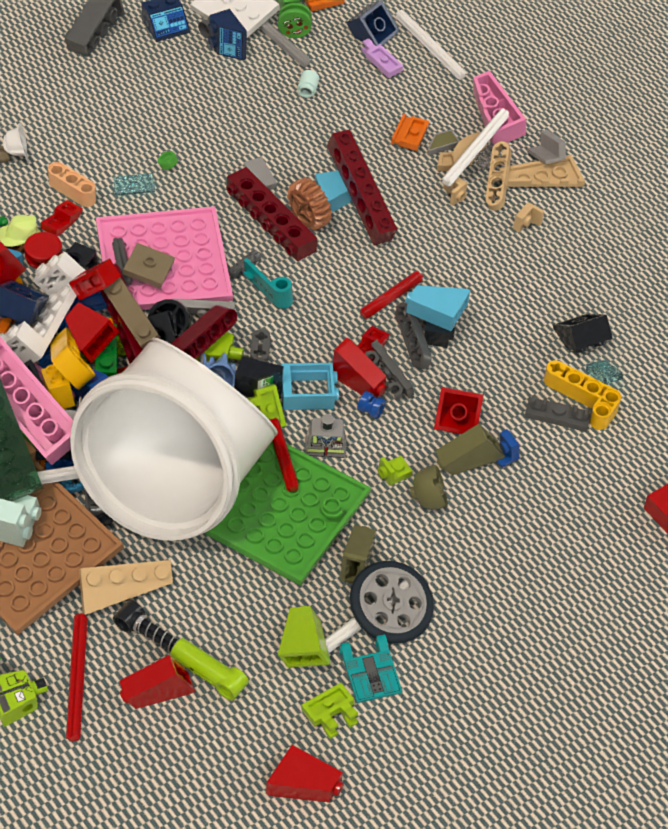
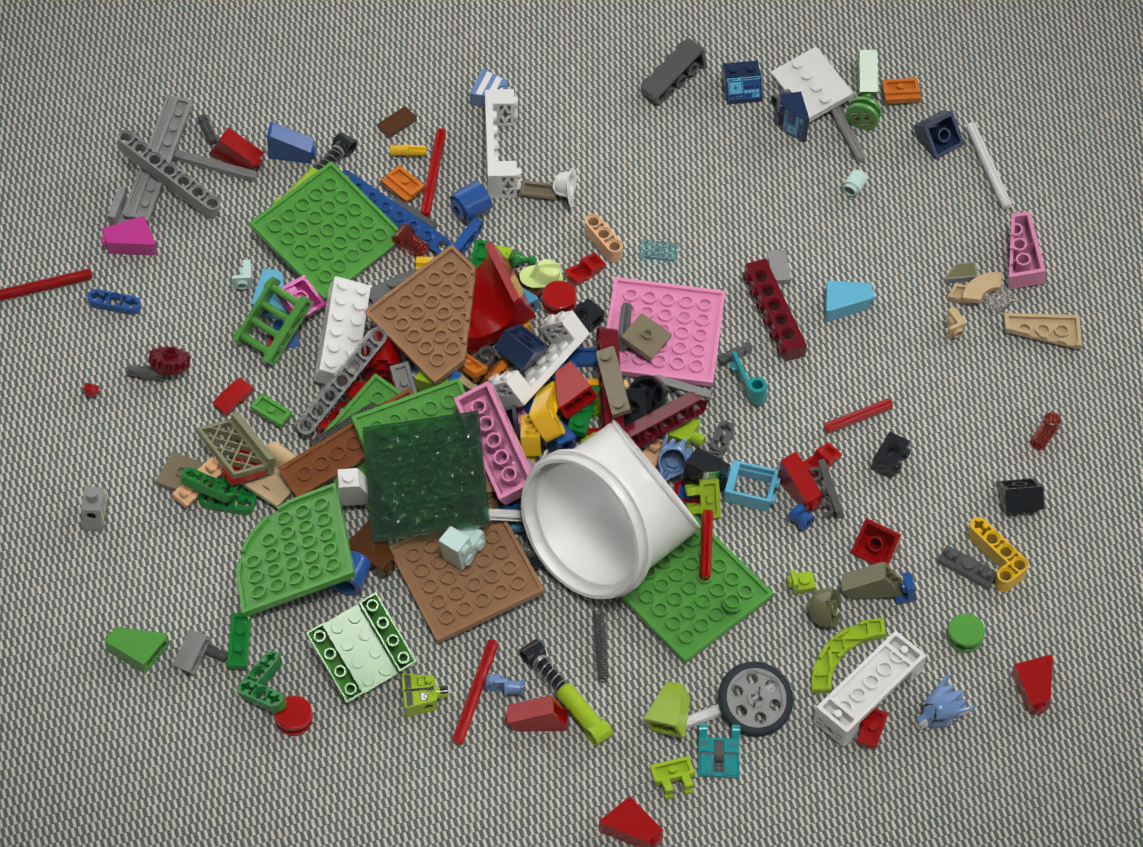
camera: 20 degrees right, 5 degrees up
(94, 279) = (591, 342): red brick -> none
(109, 660) = (498, 683): none -> medium blue connector
(117, 583) = (527, 622): tan wing -> none
(167, 160) = (698, 233): bright green tile -> none
(197, 576) = (599, 669): none -> dark grey piece
(309, 203) = (811, 309): nougat gear -> none
(326, 437) = (750, 539): light grey torso -> none
(357, 552) = (741, 647): olive slope -> none
(361, 187) = (863, 305): dark red brick -> none
(381, 58) = (934, 171): lavender plate -> none
(410, 132) = (934, 255): orange plate -> none
(419, 355) = (862, 460): dark grey beam -> none
(438, 304) = (891, 439): medium azure slope -> none
(456, 527) = (838, 647): none -> lime tile
(475, 147) = (986, 288): white axle -> none
(501, 175) = (996, 320): tan beam -> none
(508, 559) = (868, 687): none -> white plate
(521, 592) = (872, 728): none -> red plate
(526, 215) = (1012, 367): tan bracket -> none
(551, 148) = (1060, 306): light grey panel -> none
(583, 265) = (1045, 431): none -> clear red piece
(583, 478) = (965, 633): none -> bright green head
(591, 556) = (944, 705): none -> medium blue piece
(604, 371) = (1023, 539): clear light blue plate -> none

